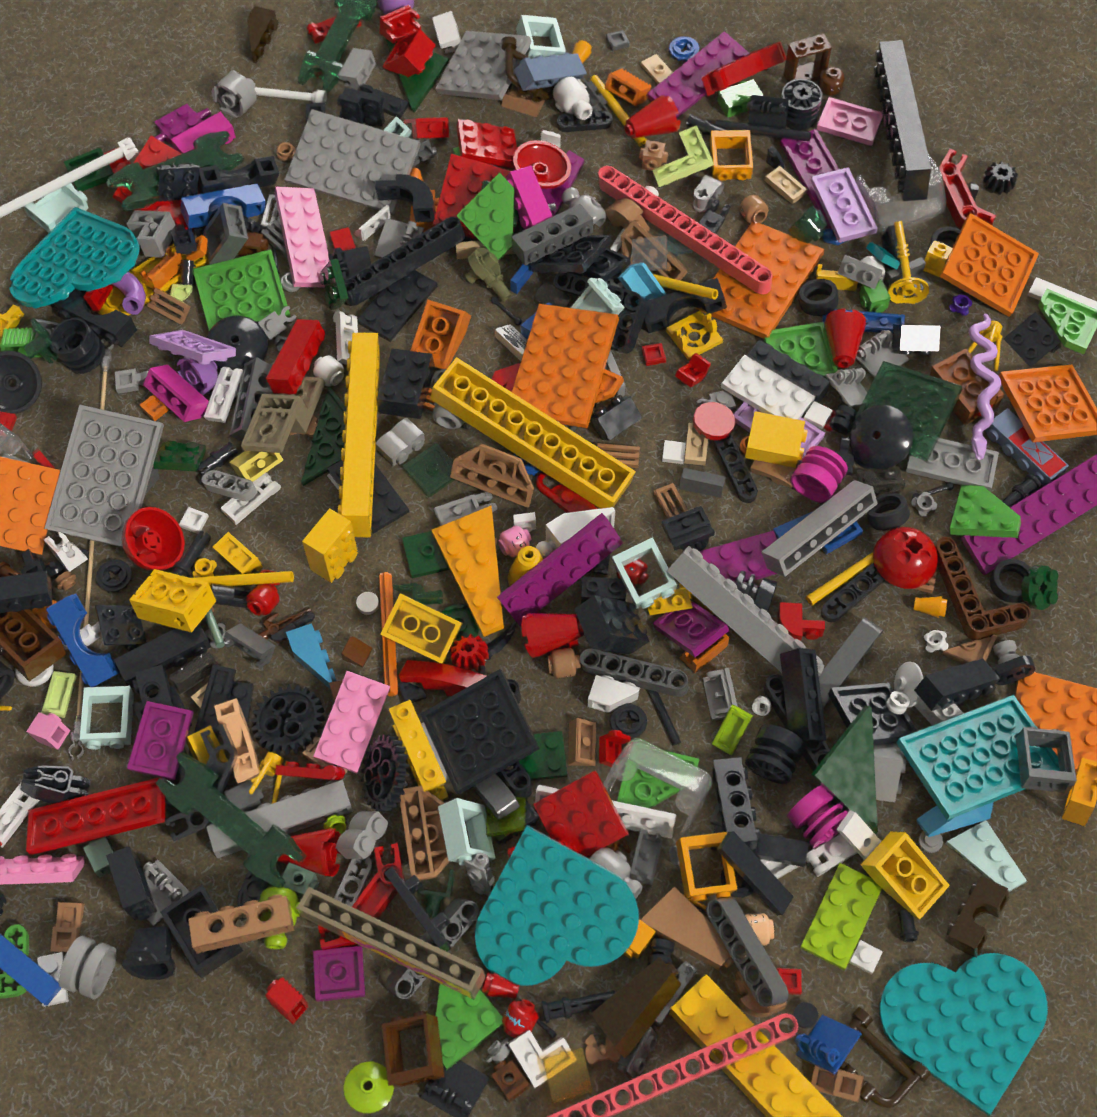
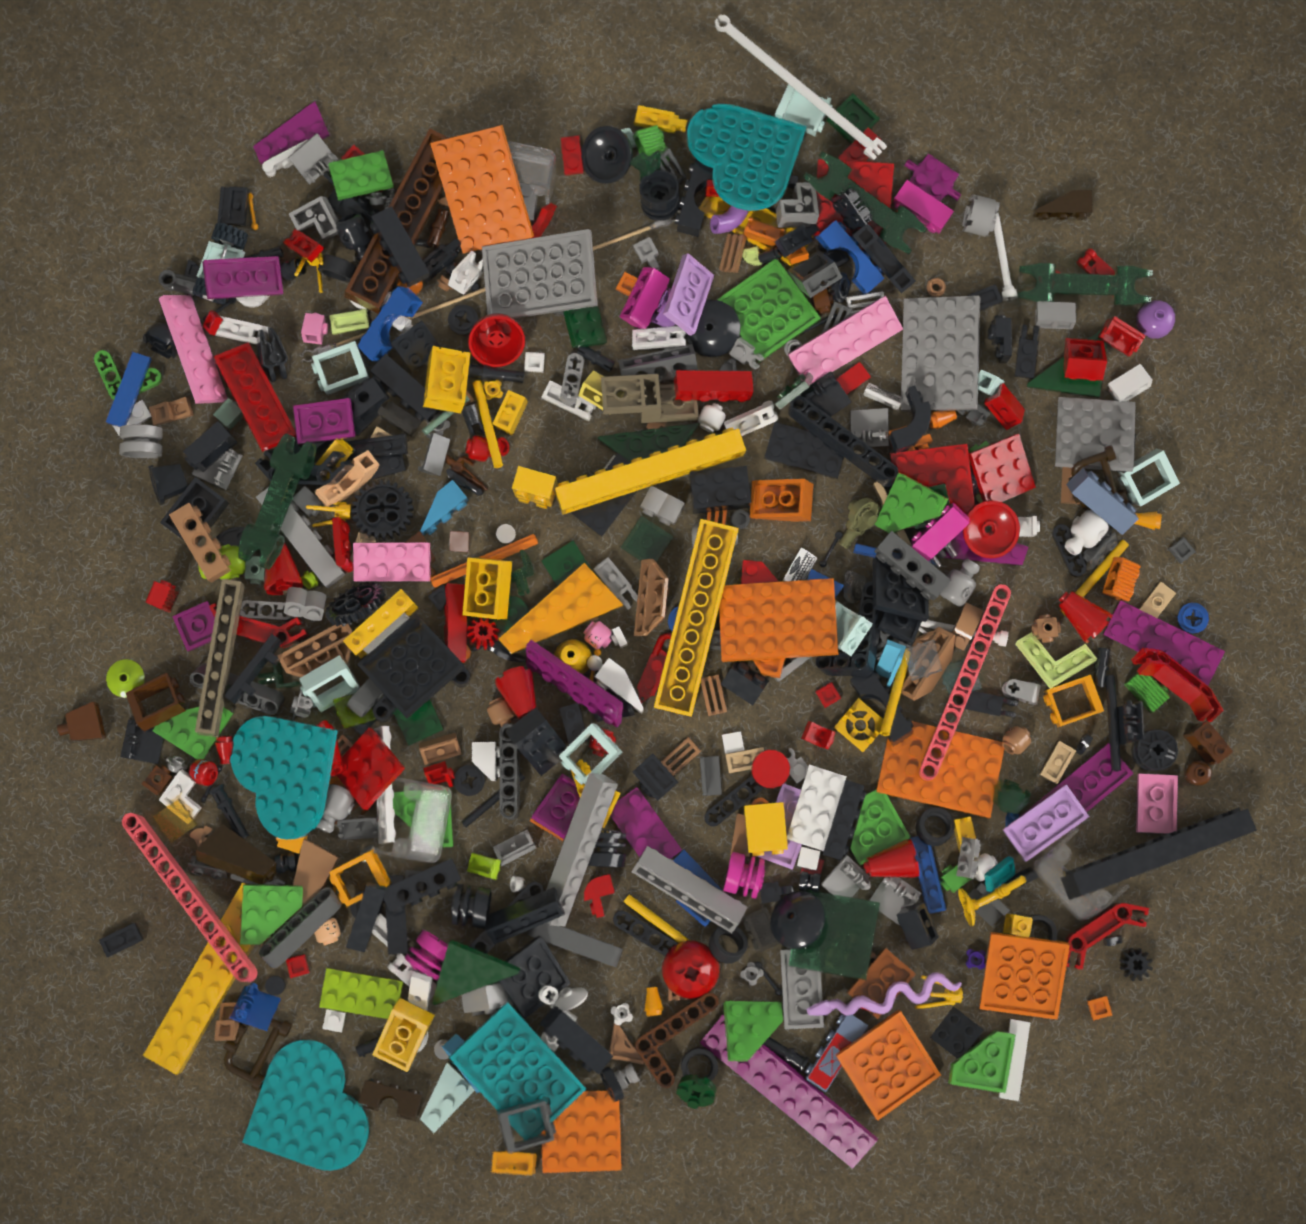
camera: 75 degrees right, 20 degrees up
(714, 985) = (266, 910): none -> bright green plate
(1035, 218) = (1099, 1008): none -> orange plate

